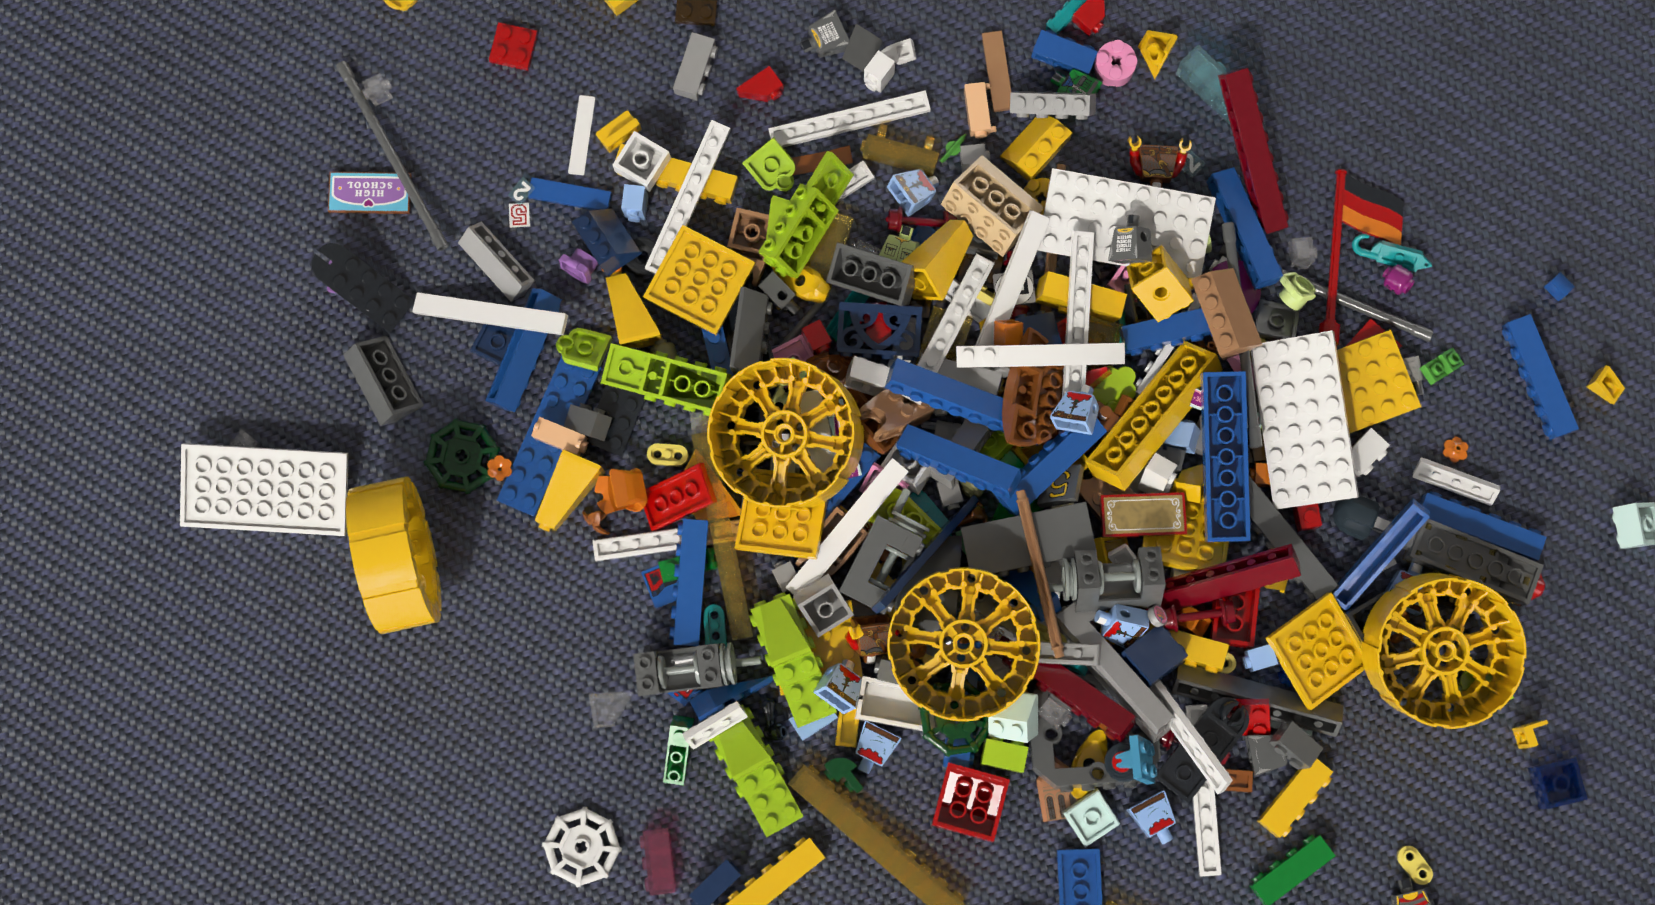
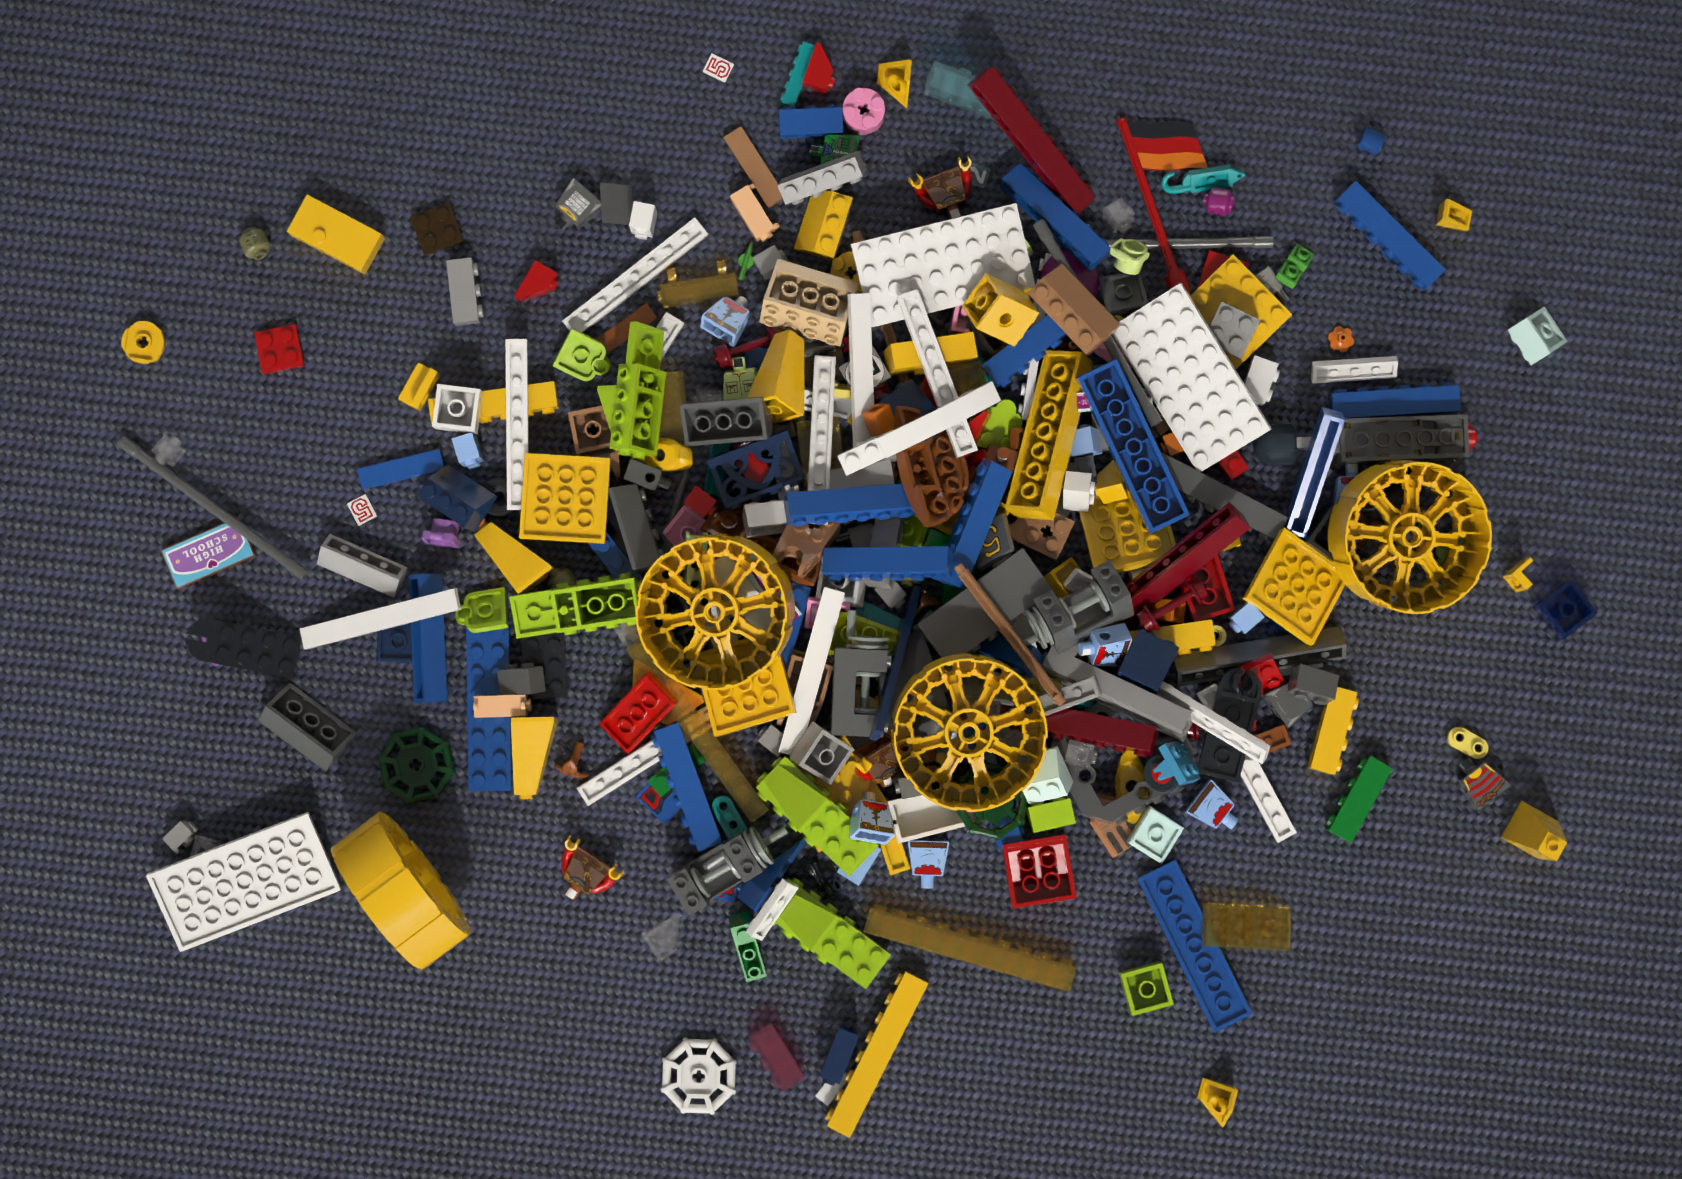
camera: 30 degrees left, 5 degrees up
(228, 425) = (180, 836): none -> light grey brick
(499, 463) = (453, 756): orange plant -> none
(521, 191) = (353, 486): clear light blue sticker -> none
(566, 616) = (586, 871): none -> torso
(581, 135) = (385, 406): white sticker -> none
(621, 491) = (583, 730): orange piece -> none
(668, 454) = (610, 675): light yellow plate -> none
(841, 768) = (906, 894): dark green brick -> none
(901, 51) = (653, 190): white plate -> none
(1076, 411) = (976, 466): light blue torso -> none
(1131, 243) = (956, 283): dark grey torso -> none
(1143, 515) = (1080, 533): pearl gold tile -> none
(1157, 616) = (1134, 624): light grey tile -> none
(1362, 395) = (1233, 329): none -> light grey brick

